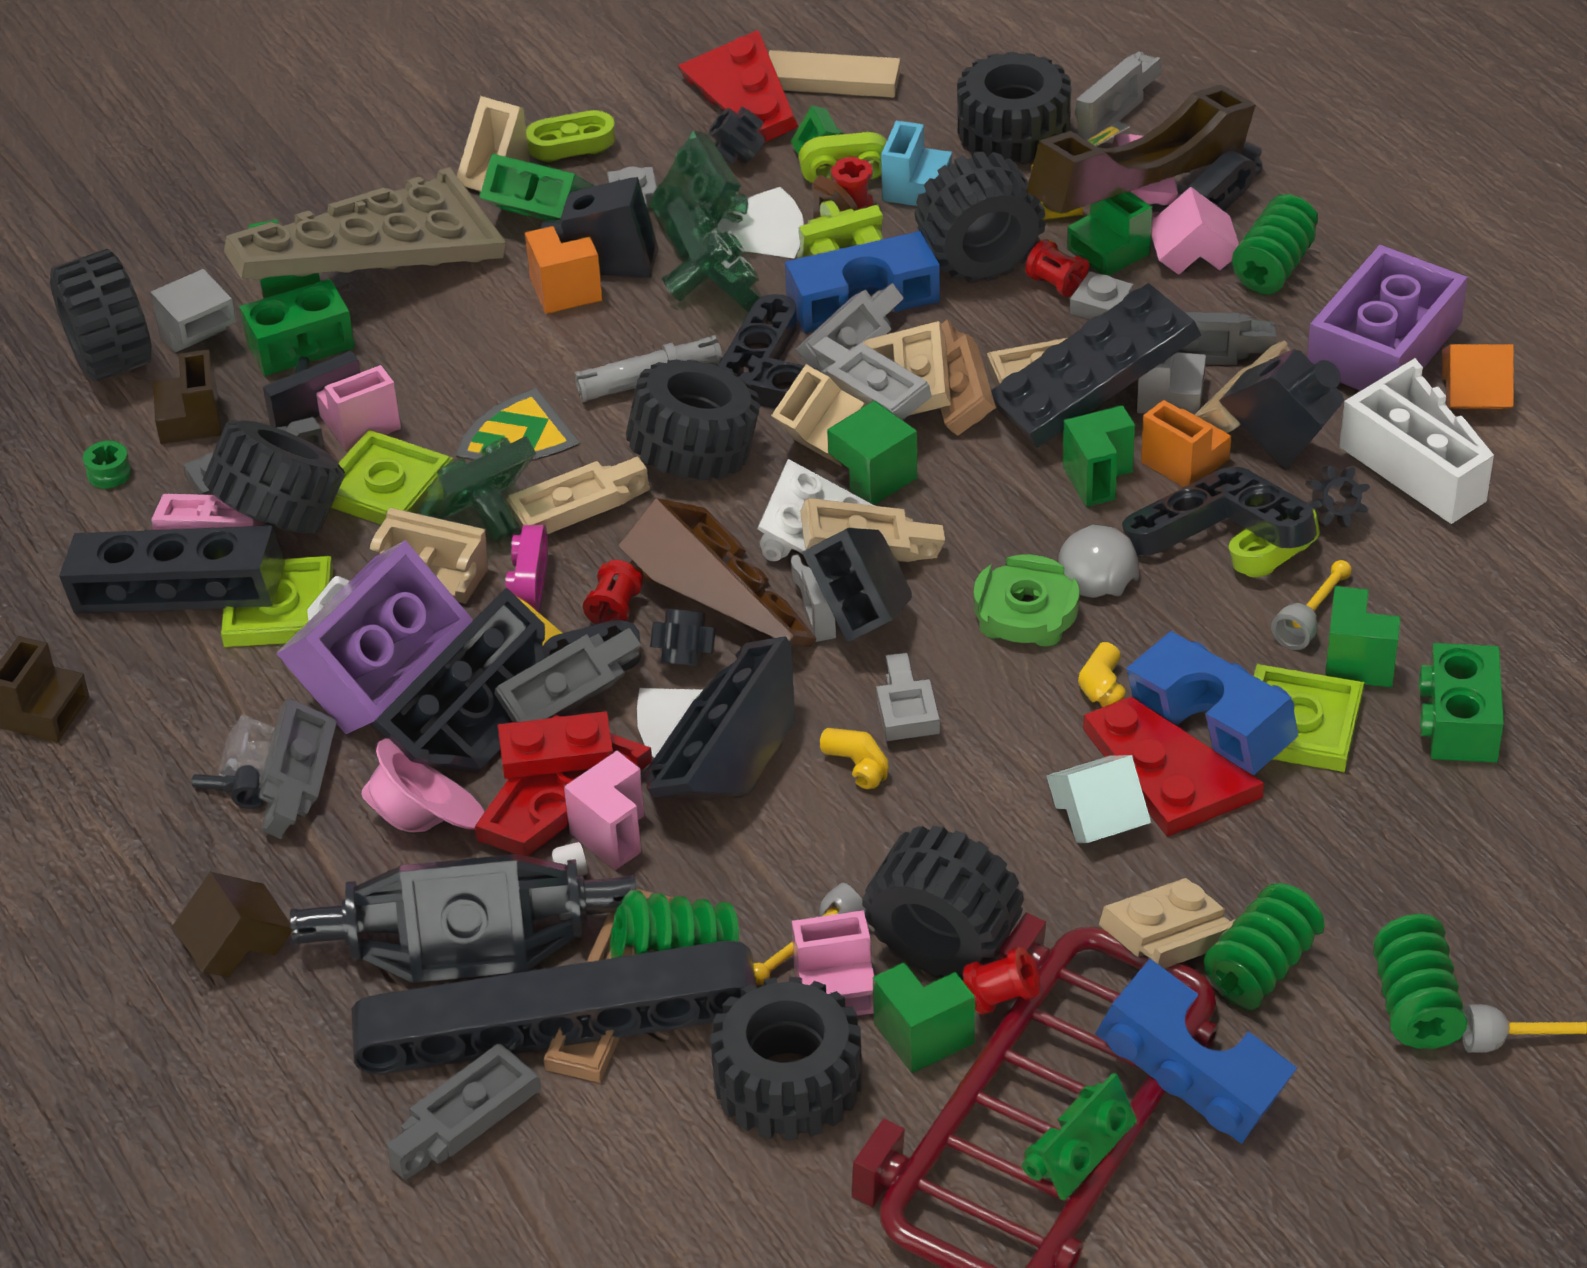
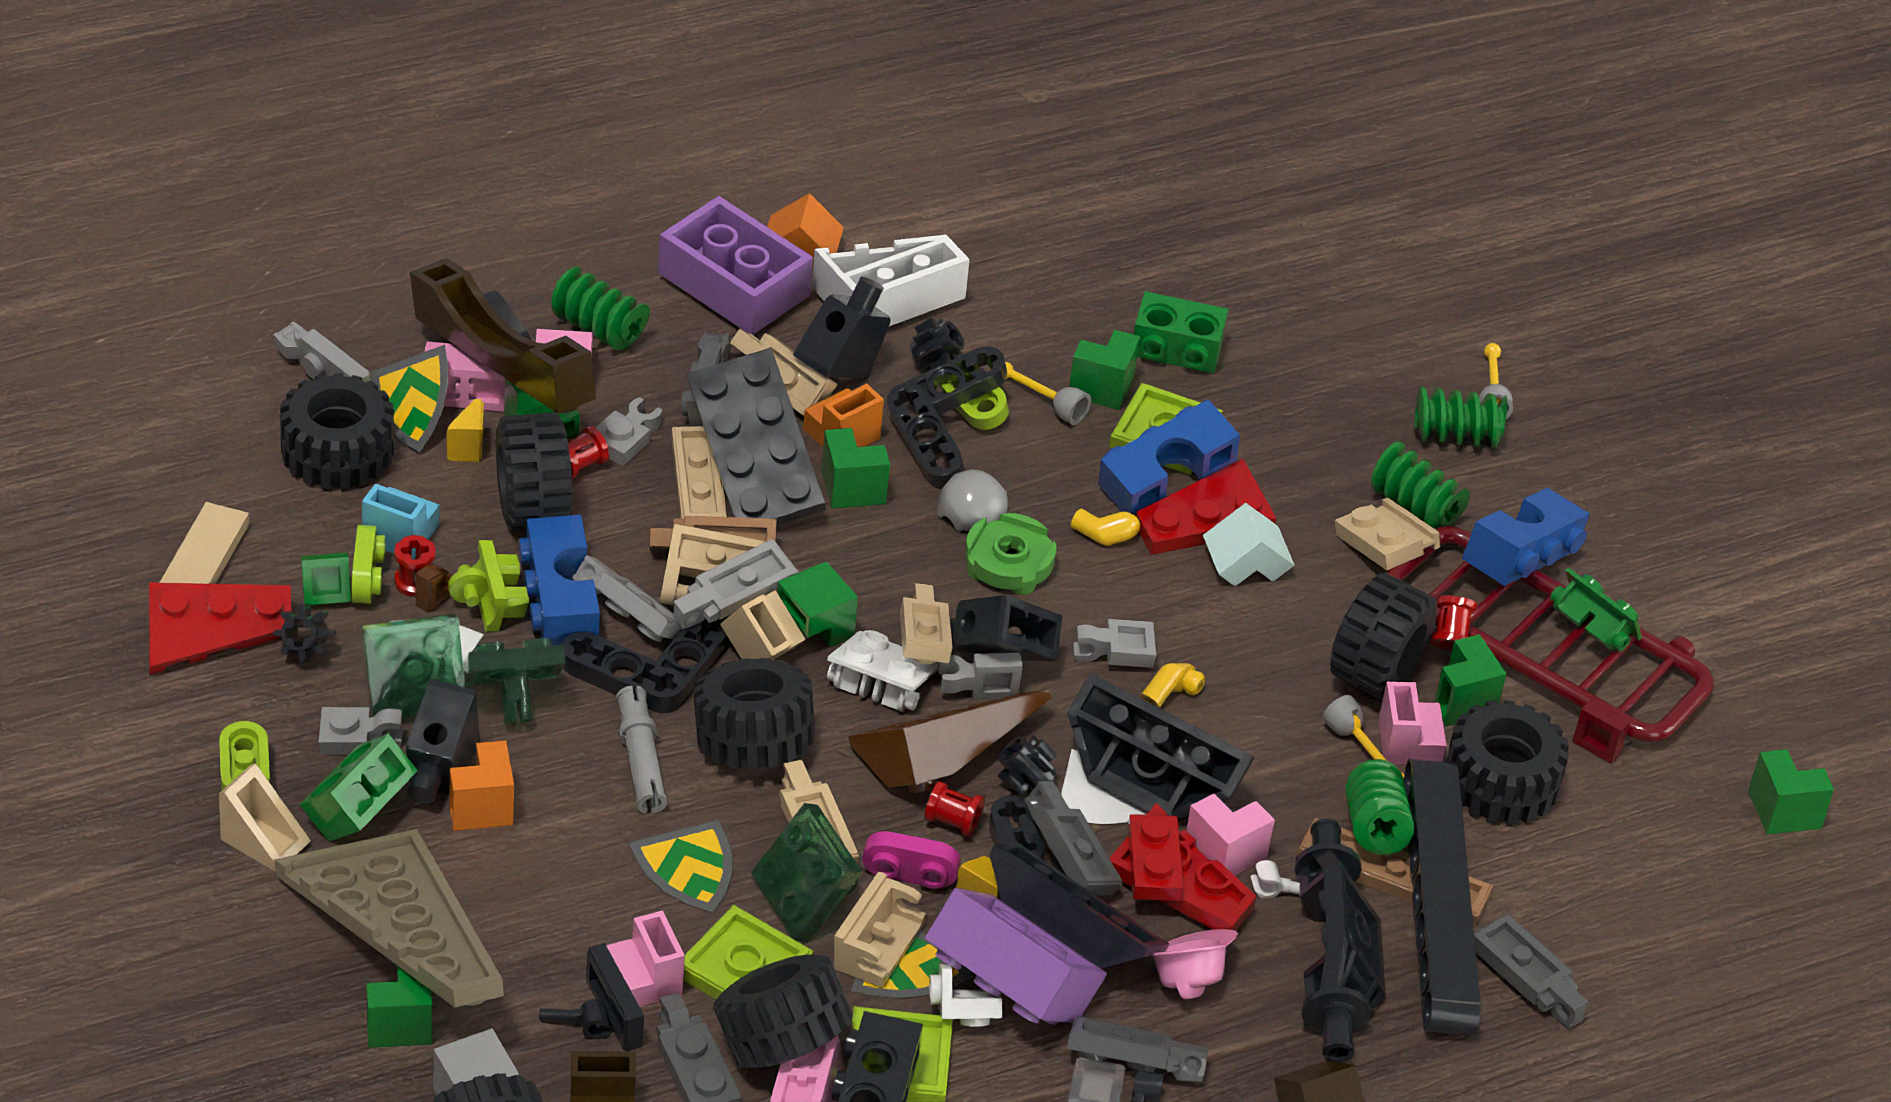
camera: 90 degrees left, 0 degrees up
(297, 324) = (520, 1014): green brick -> none

